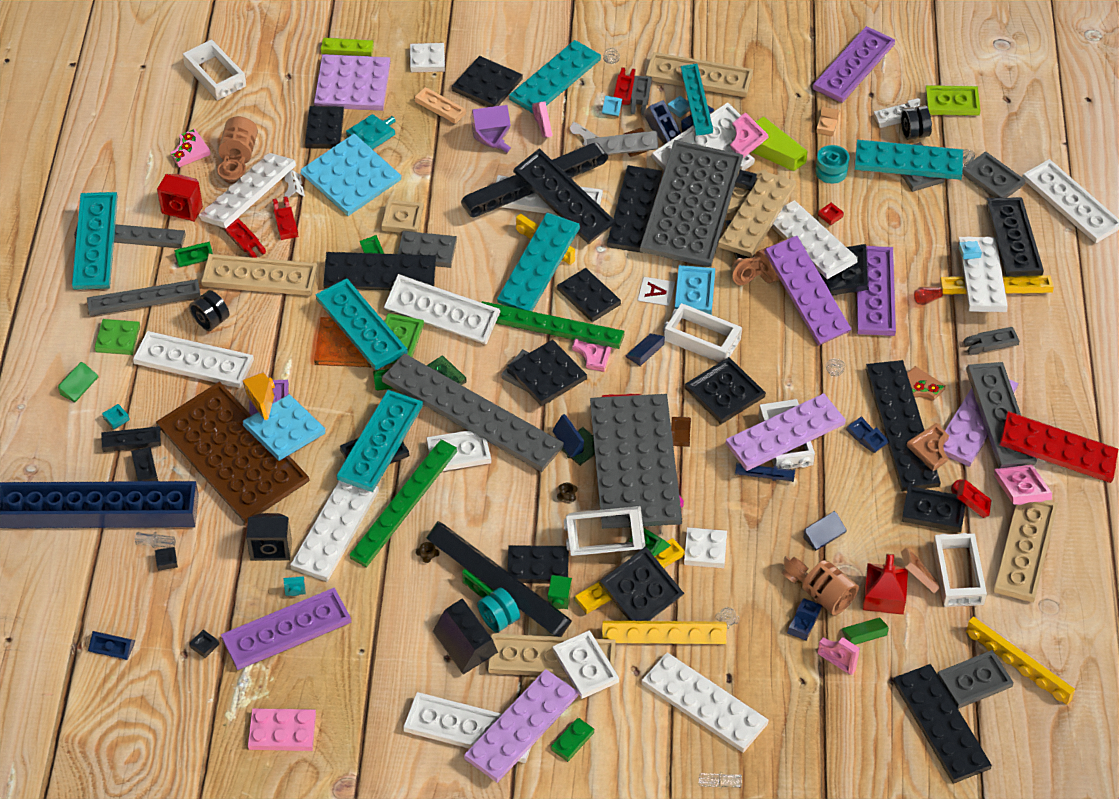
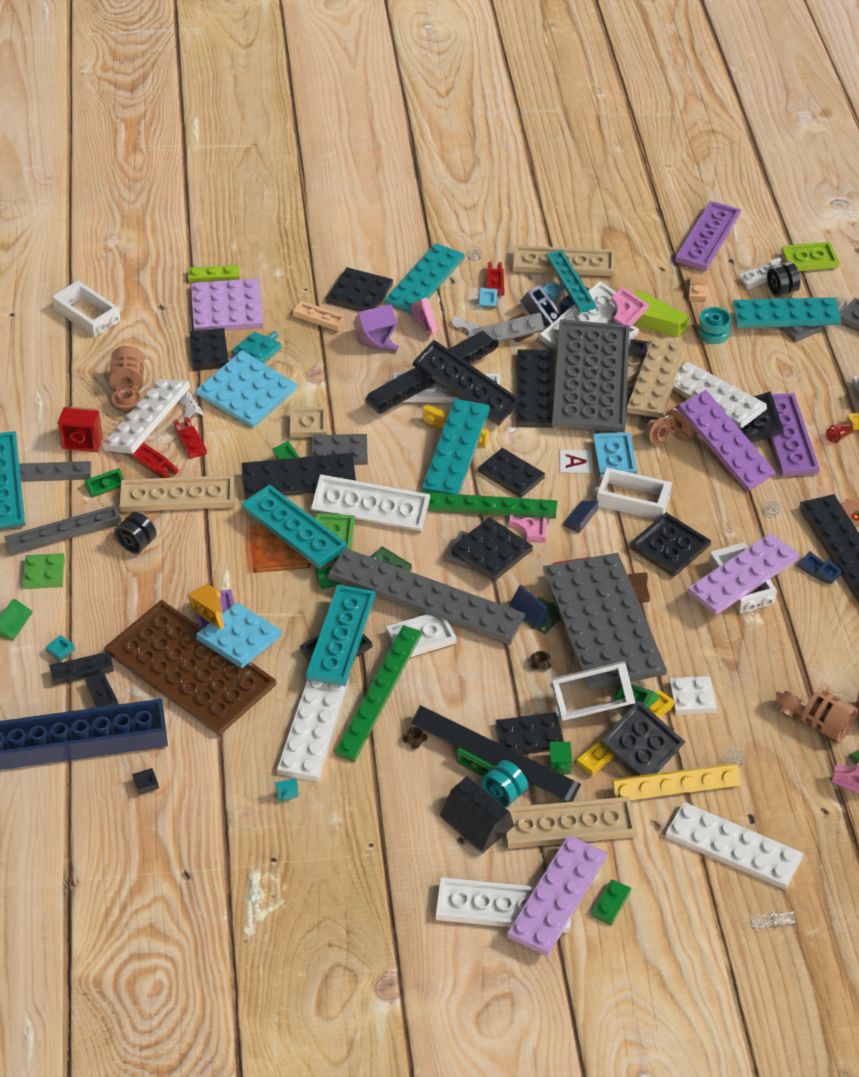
camera: 10 degrees left, 5 degrees down
(111, 645) = (106, 877): dark blue slope -> none
(155, 540) = (129, 764): clear axle -> none
(190, 148) = (78, 384): bright pink tile -> none
(193, 359) = (128, 582): white plate -> none
(204, 643) = (205, 861): black plate -> none
(269, 537) = (250, 744): black piece -> none
(282, 729) = (308, 936): bright pink plate -> none
(285, 628) = (287, 834): medium lavender plate -> none
(427, 57) = (295, 274): white plate -> none
(585, 664) = (607, 824): white plate -> none
(640, 93) = (512, 284): dark grey hinge -> none
(767, 472) = (732, 615): dark blue pin -> none
(804, 619) = (810, 750): dark blue slope -> none
(824, 531) = (805, 663): slope -> none
(830, 213) = (725, 370): red plate -> none

